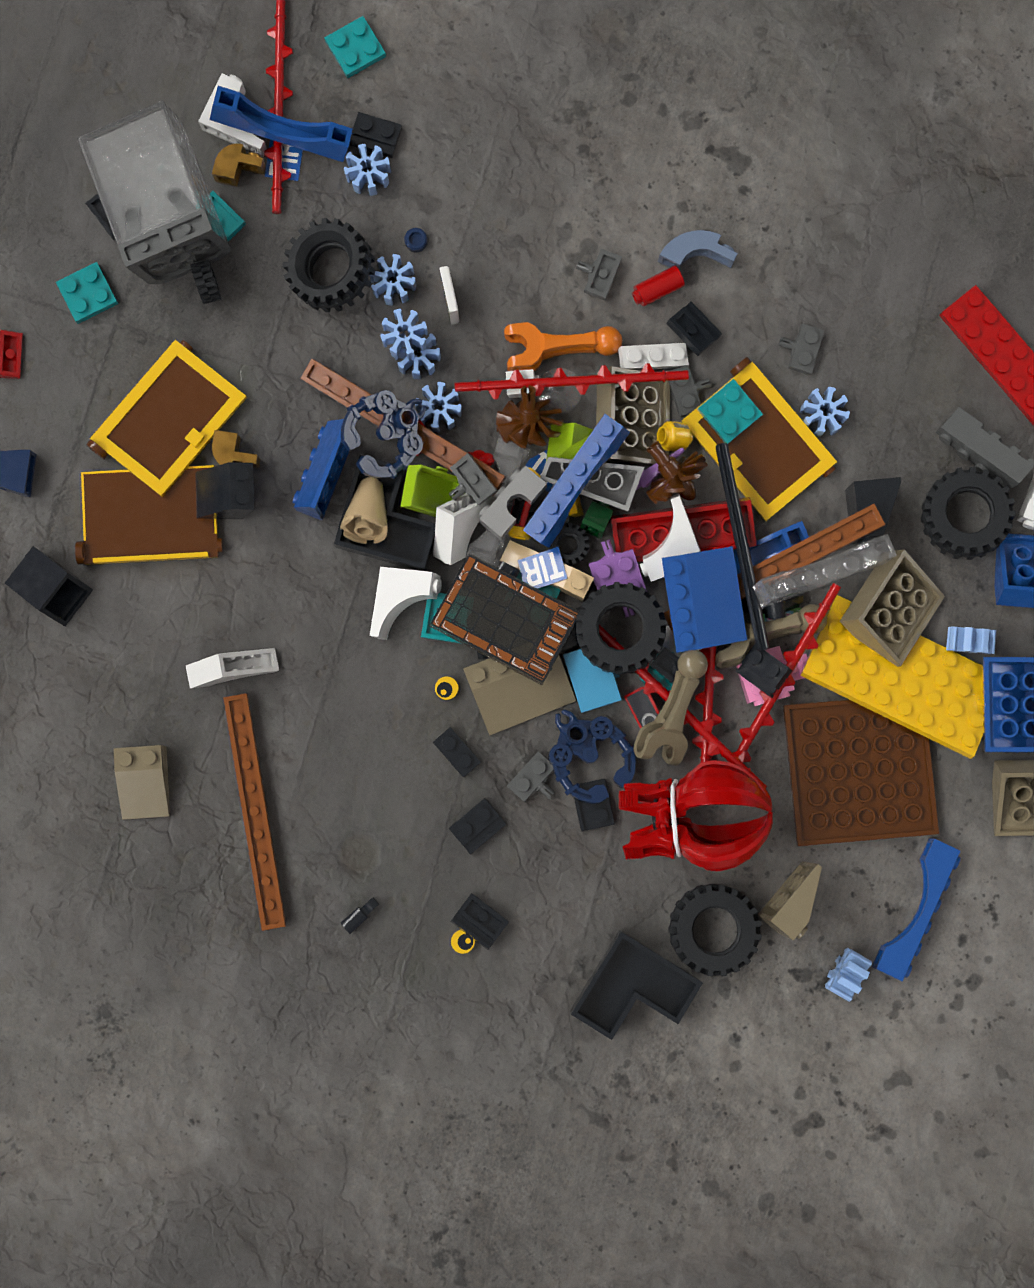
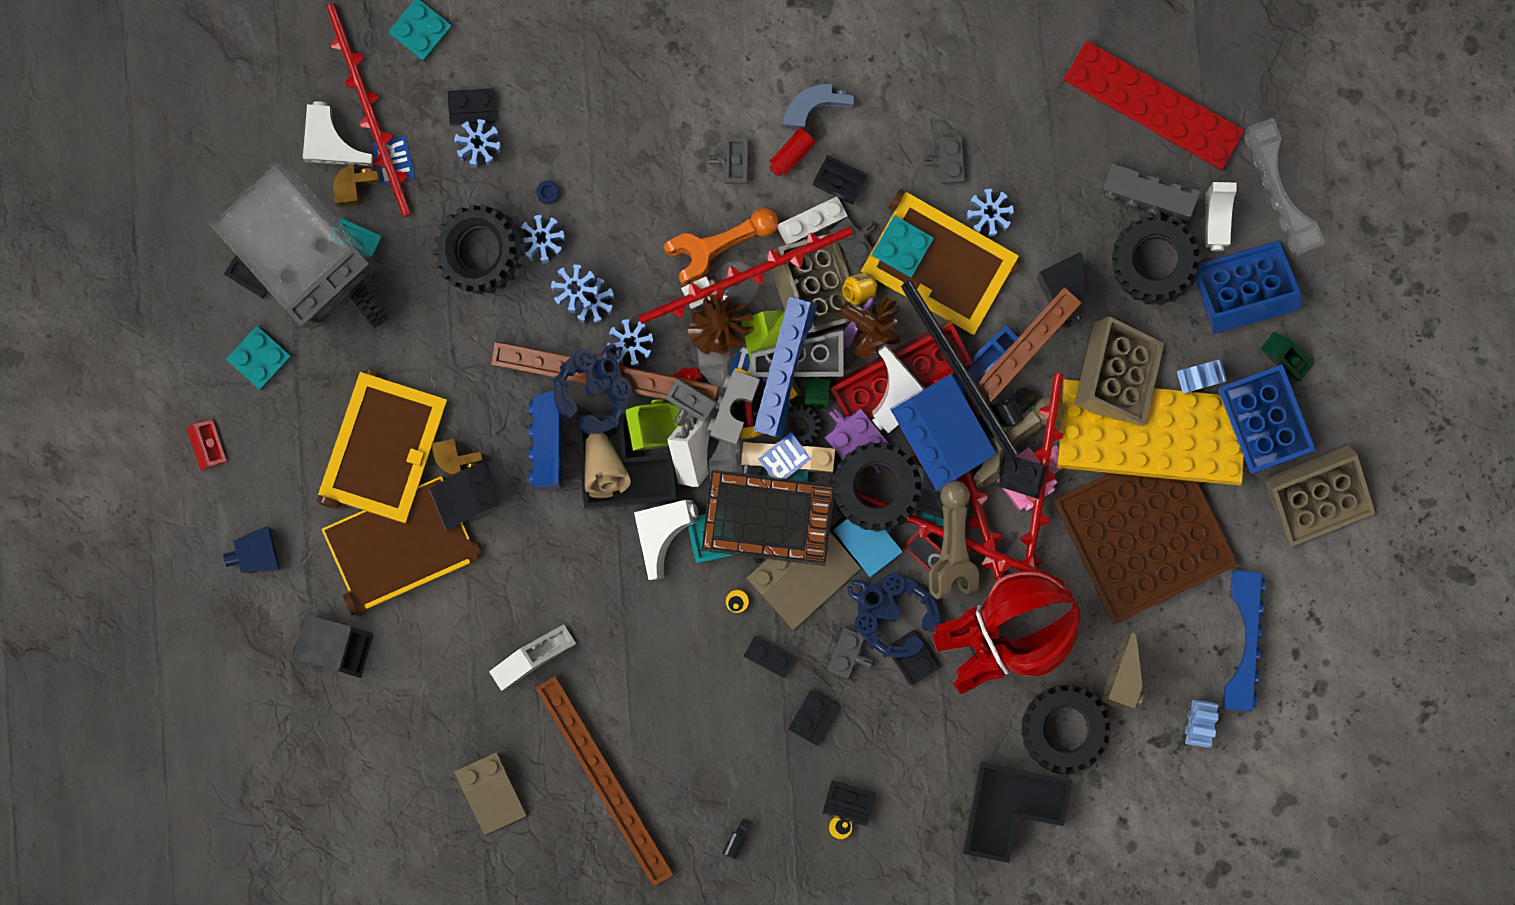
camera: 20 degrees left, 0 degrees up
(237, 111) = (424, 131): blue arch -> none
(449, 295) = (601, 235): white tile -> none
(821, 573) = (1043, 365): clear arch -> none

